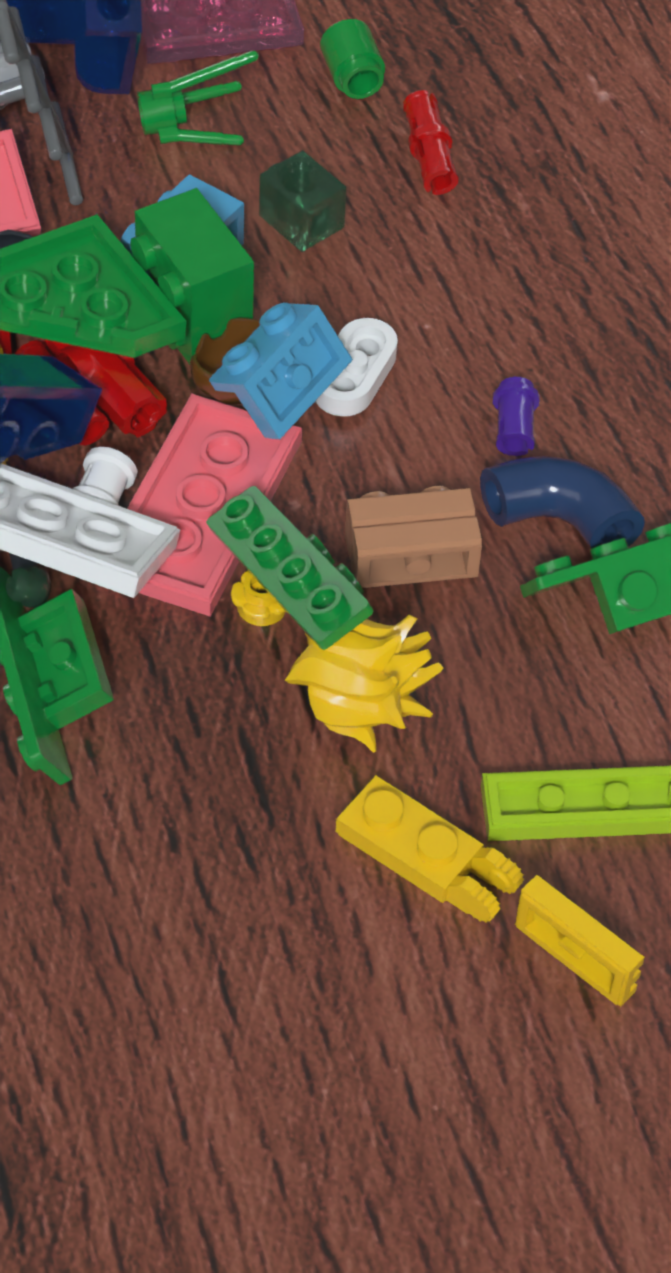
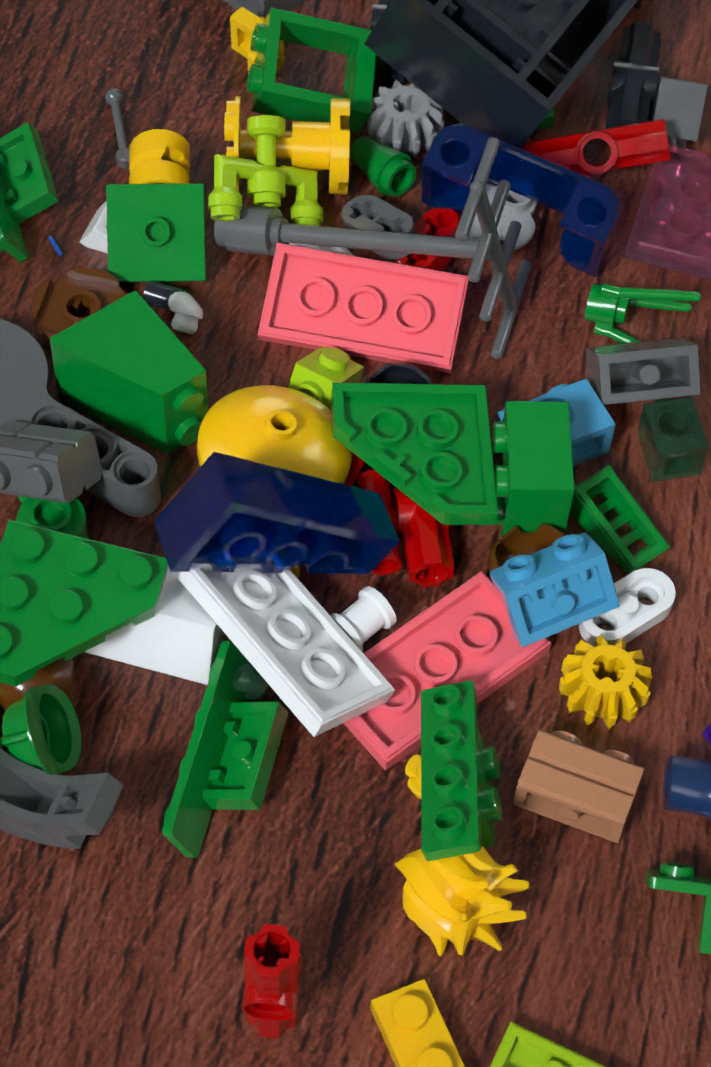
camera: 30 degrees right, 5 degrees up
(240, 146) = (644, 370): none -> dark grey brick
(242, 828) = (271, 980): none -> red piece
(279, 274) = (616, 497): none -> green slope
(377, 436) = (605, 681): none -> yellow gear

